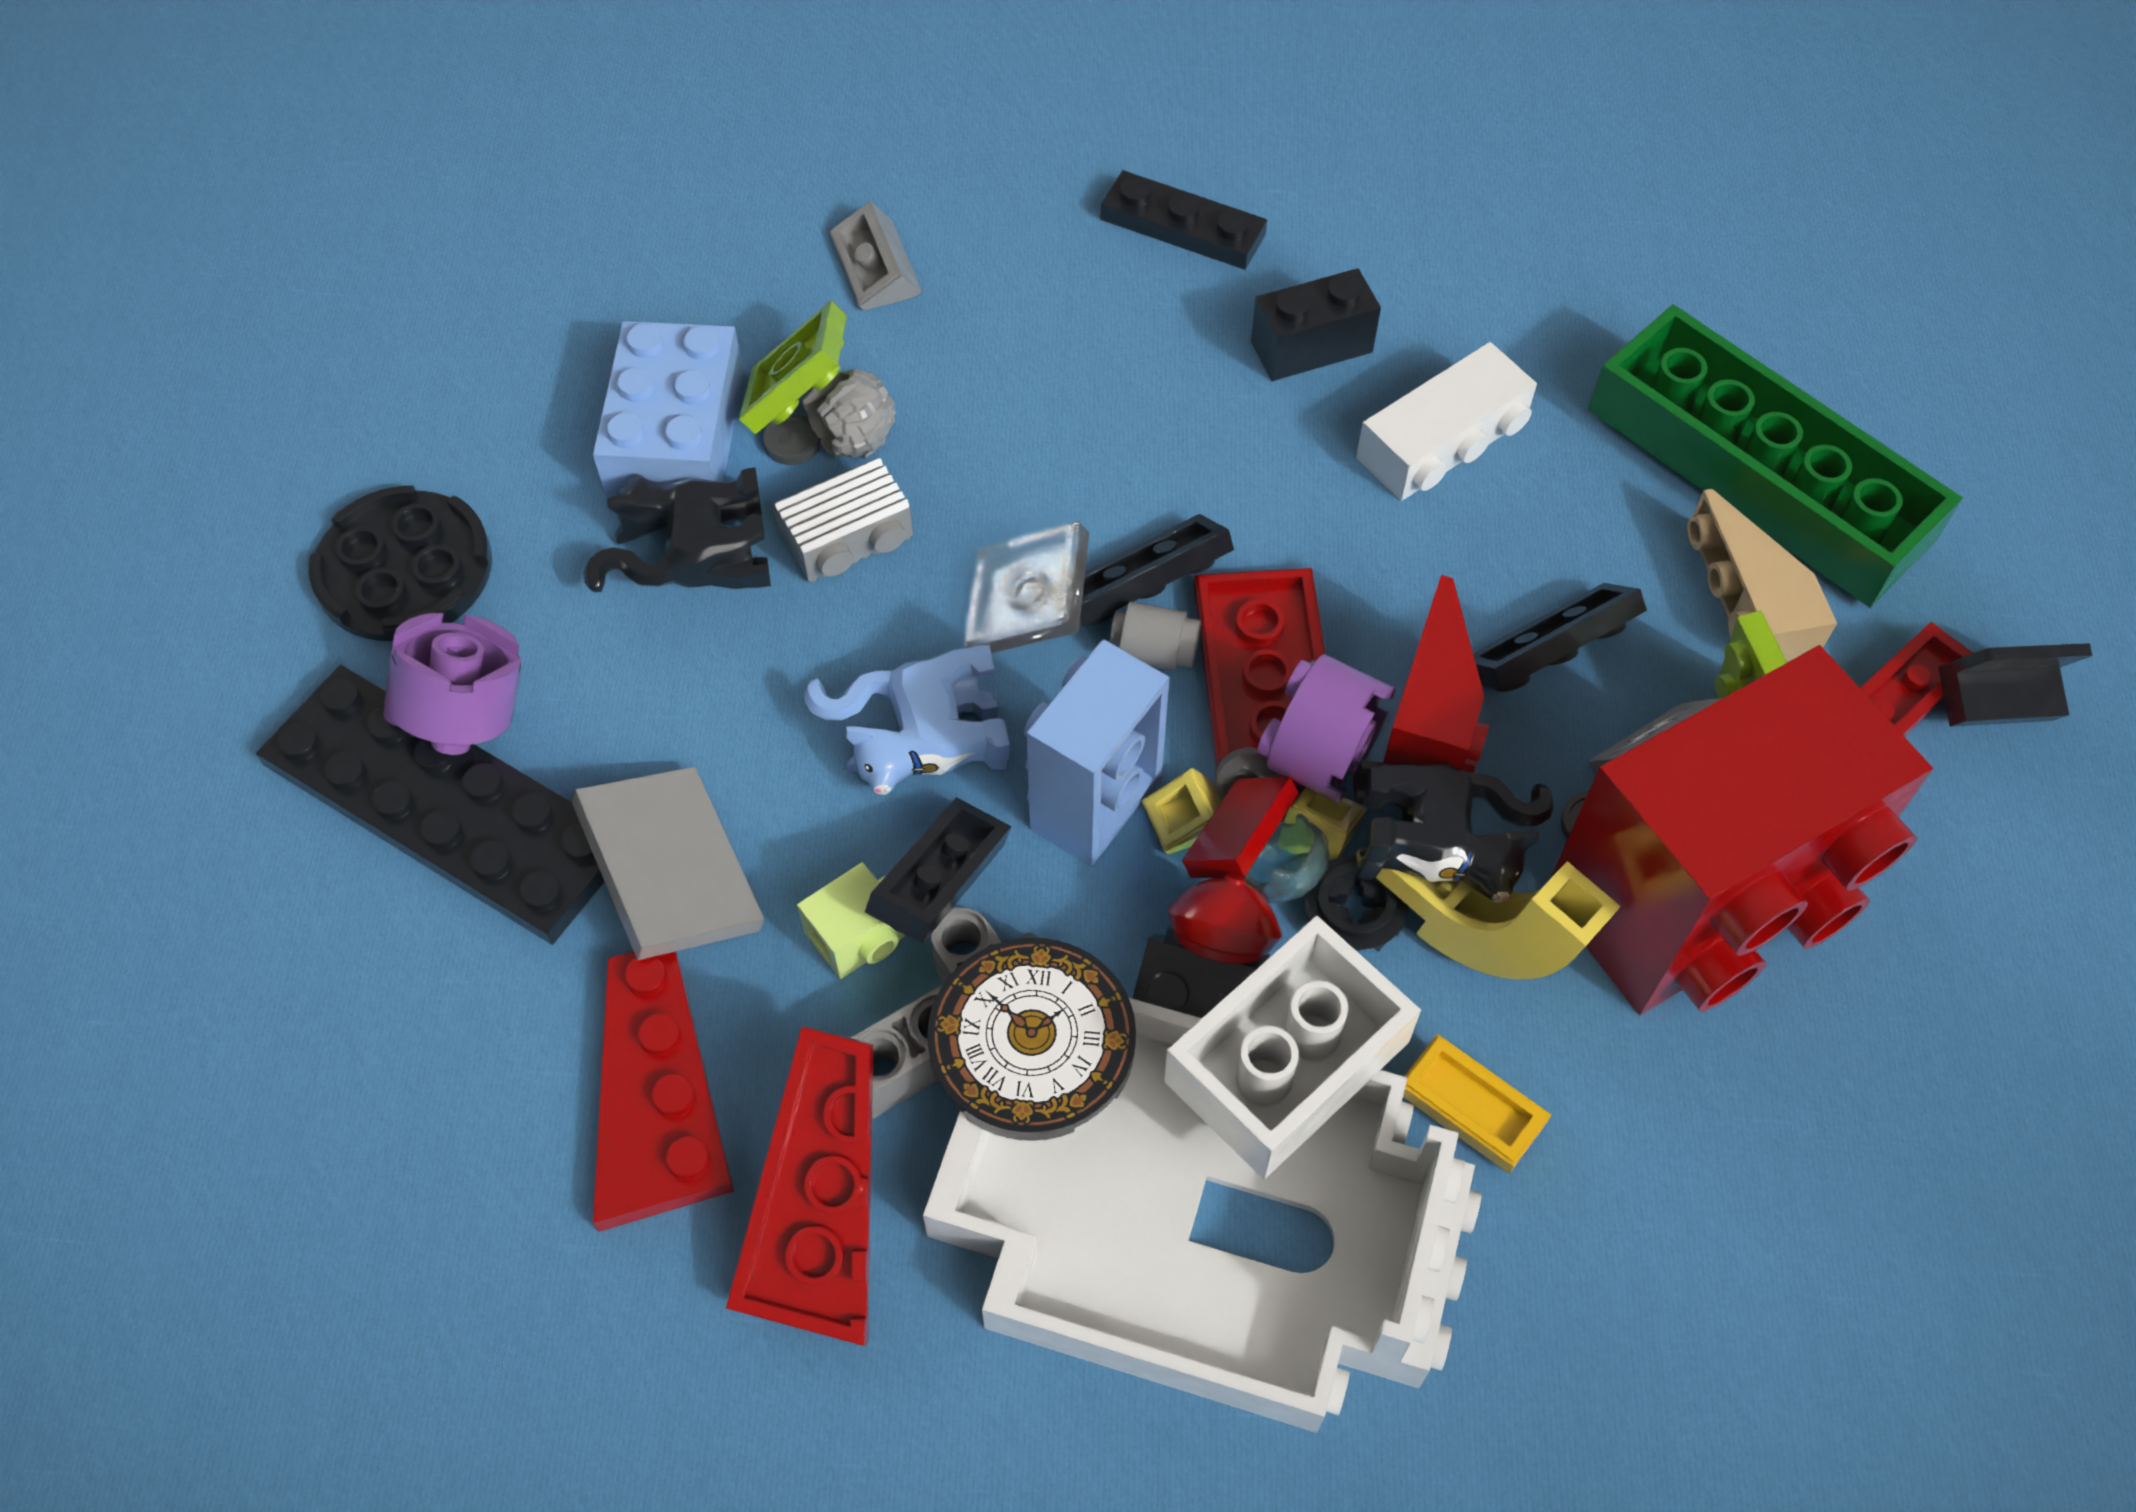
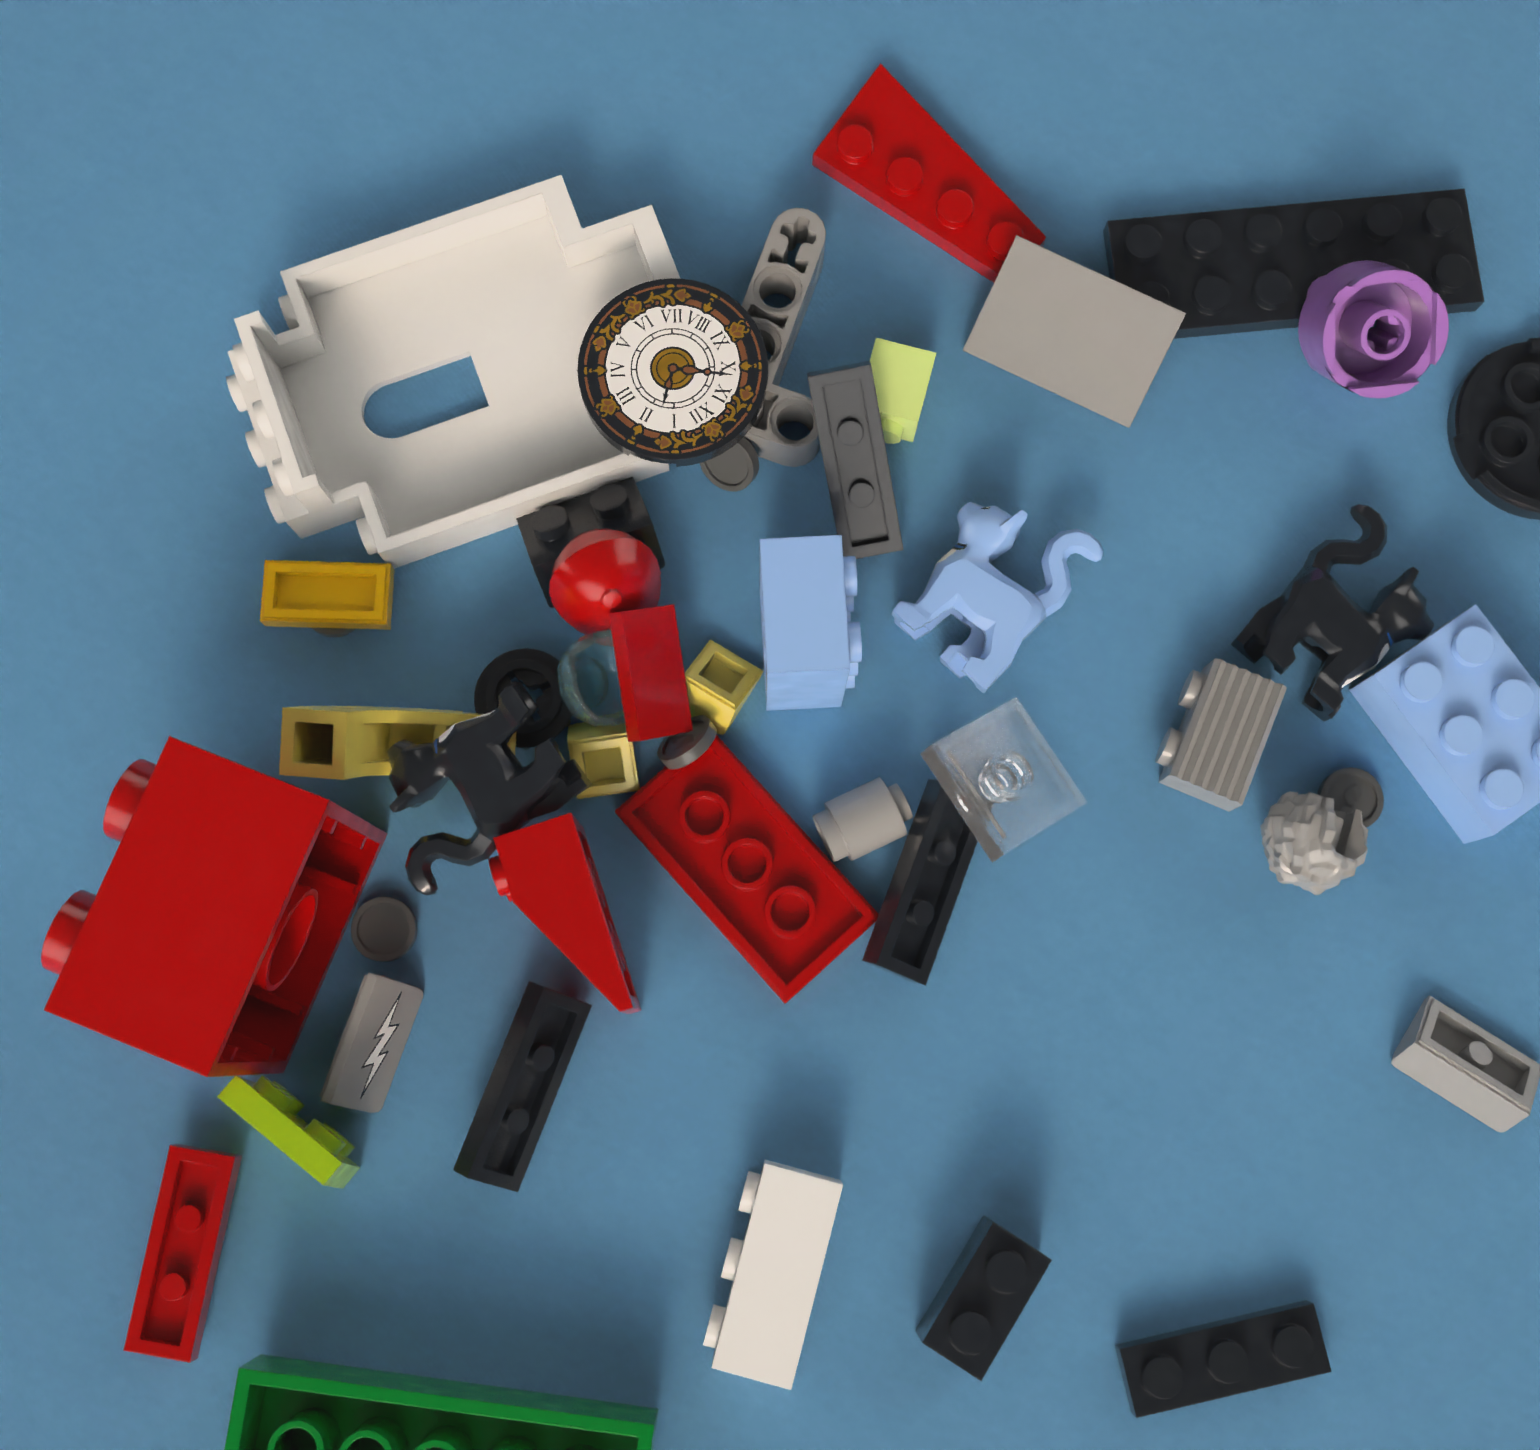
camera: 140 degrees right, 20 degrees up
(793, 367) = (1399, 836): lime plate -> none
(811, 1212) = (739, 167): red wing -> none
(1290, 1046) = (465, 478): white brick -> none
(1325, 725) = (638, 800): medium lavender brick -> none
(1758, 574) = (358, 1284): tan slope -> none
(2009, 684) = (82, 1333): black panel -> none

